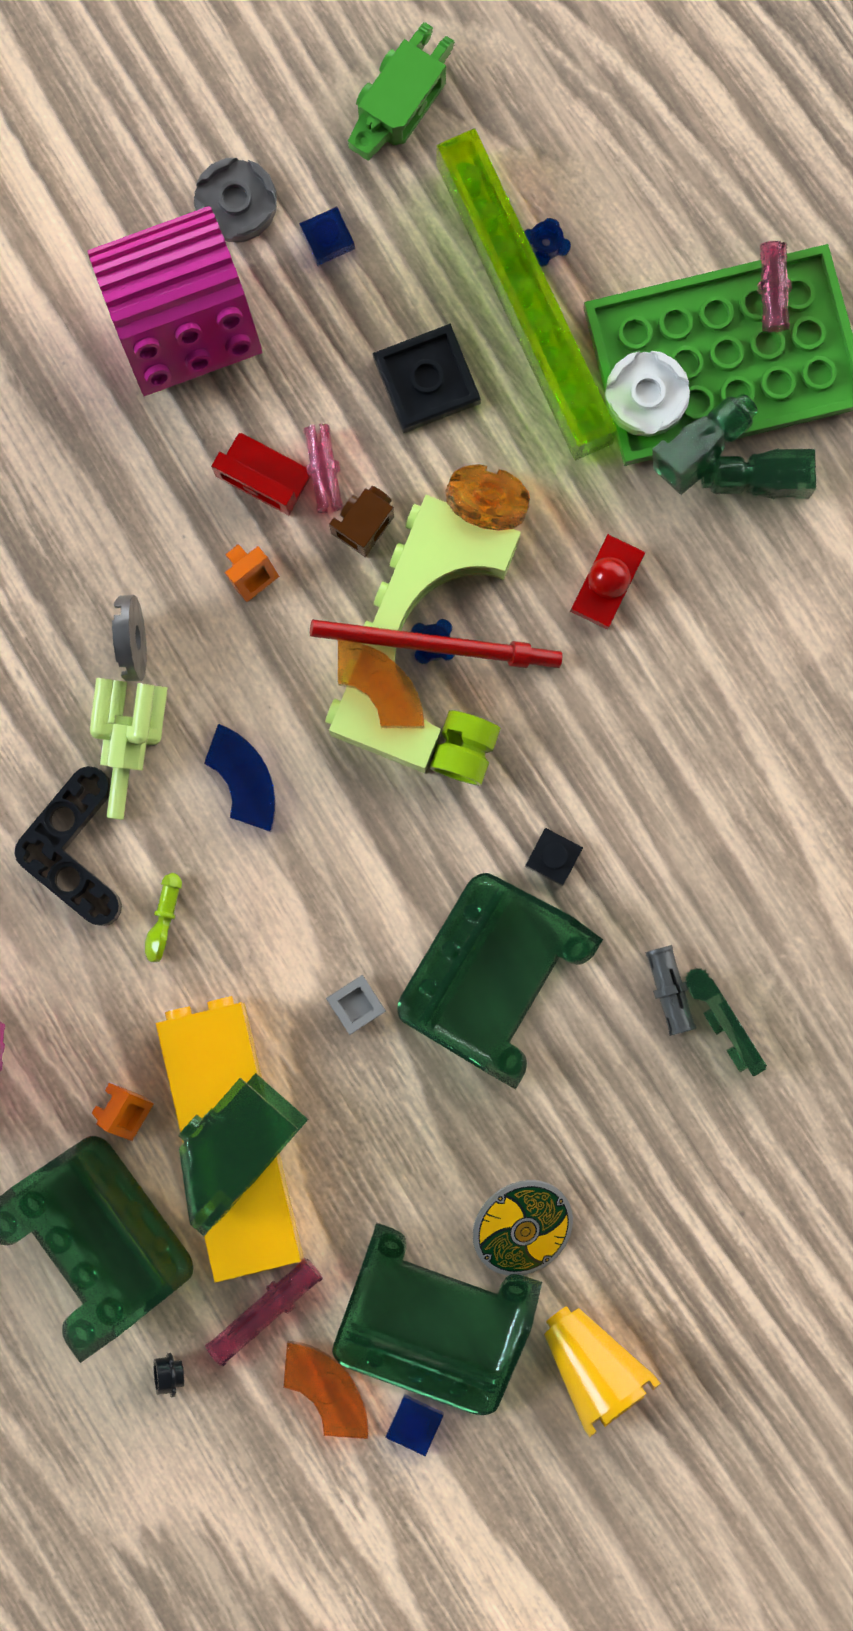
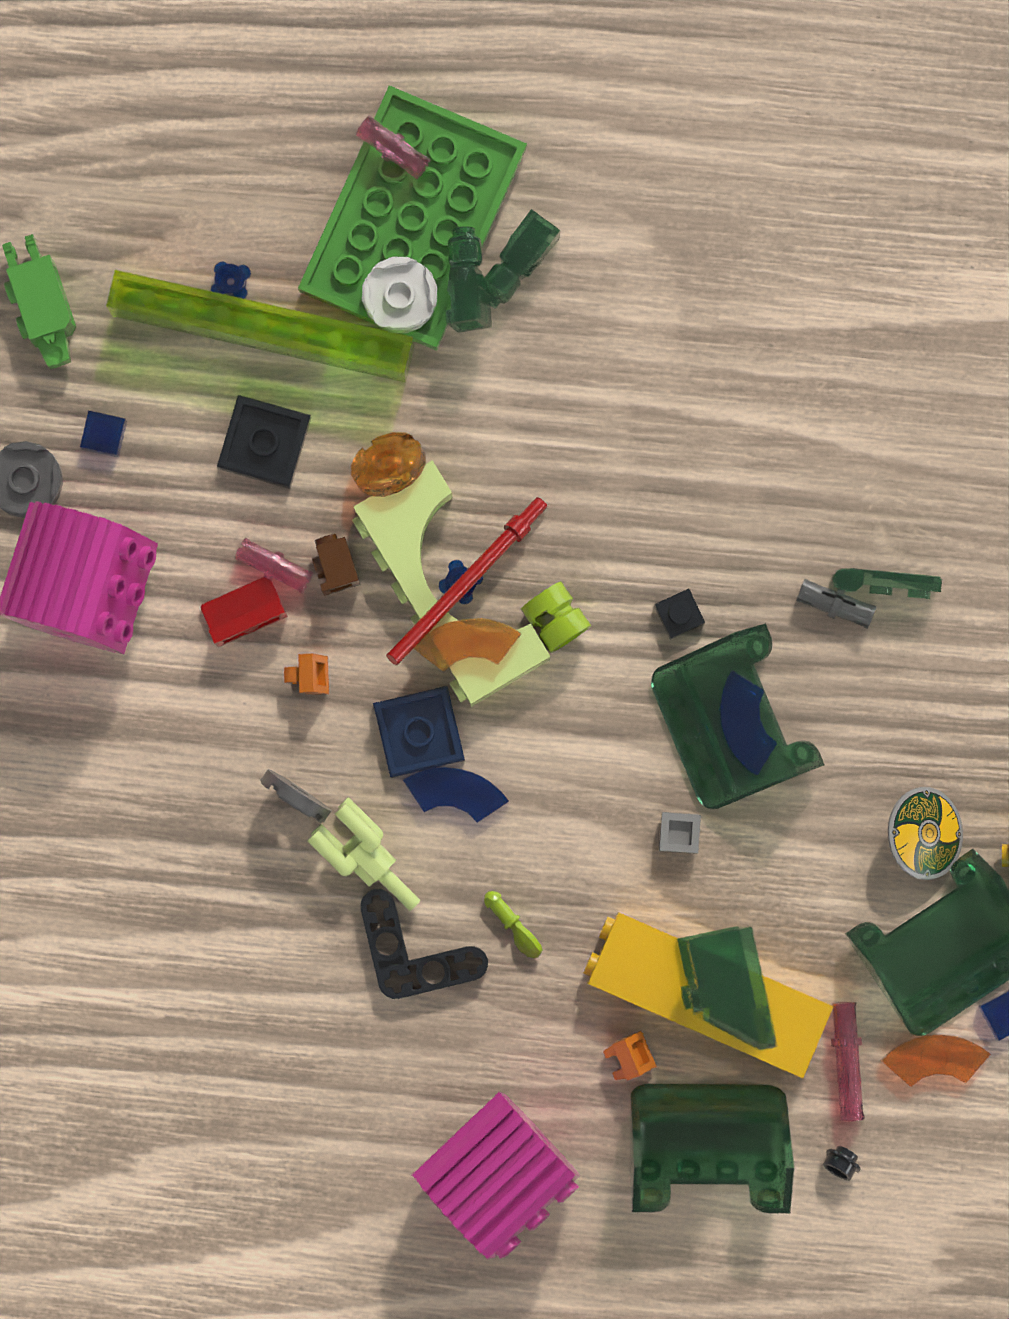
camera: 55 degrees left, 0 degrees up
(272, 706) = (418, 731): none -> dark blue tile
(497, 987) = (742, 723): none -> clear blue tile
(607, 581) = (511, 426): red tile -> none

